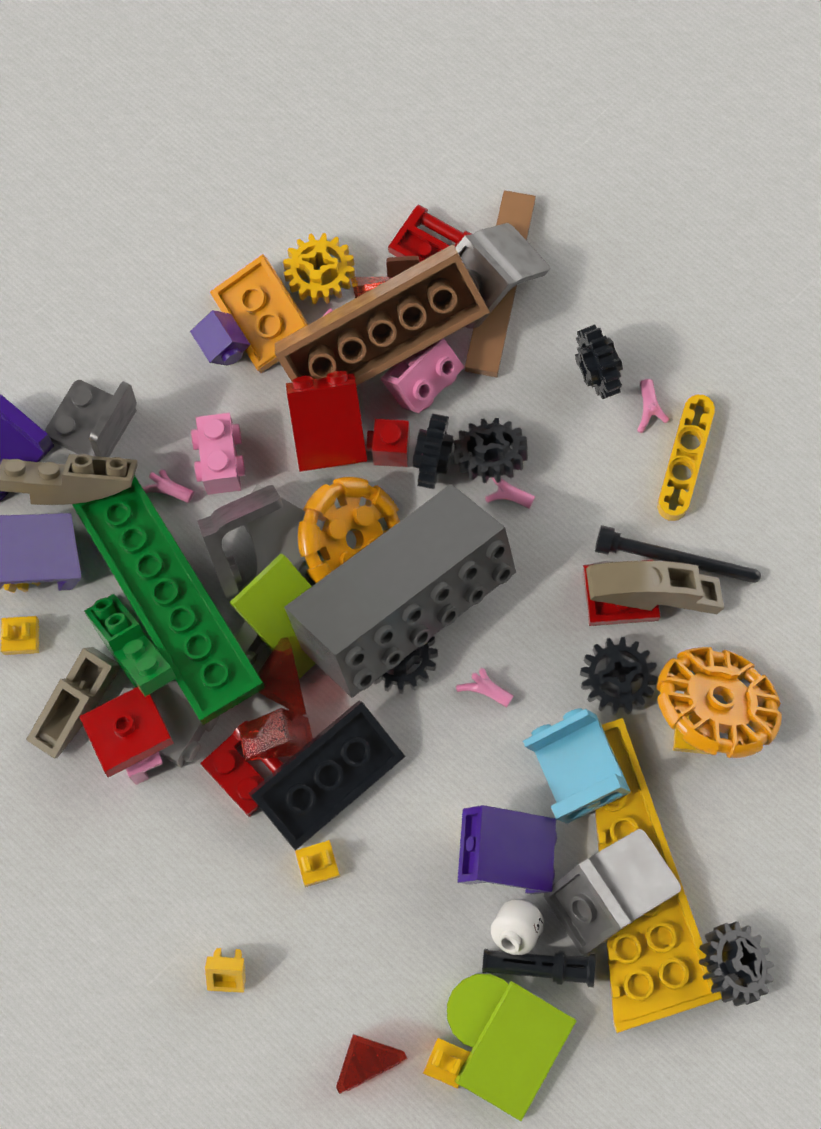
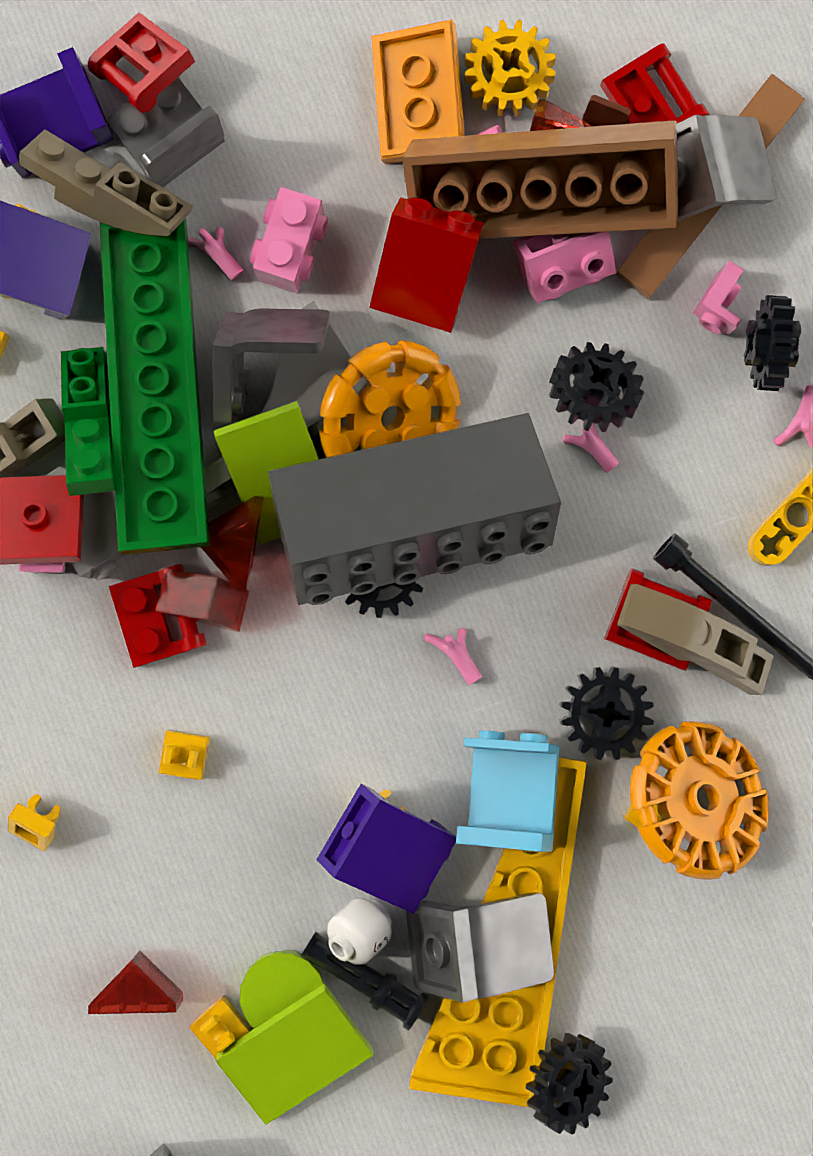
camera: 25 degrees right, 15 degrees up
(55, 372) = (149, 51): none -> red plate
(220, 338) = (355, 101): brick -> none
(327, 775) = (236, 668): black plate -> none
(389, 442) = (487, 321): red brick -> none
(433, 451) = (529, 358): black gear -> none
(546, 360) = (720, 292): none -> bright pink bracket

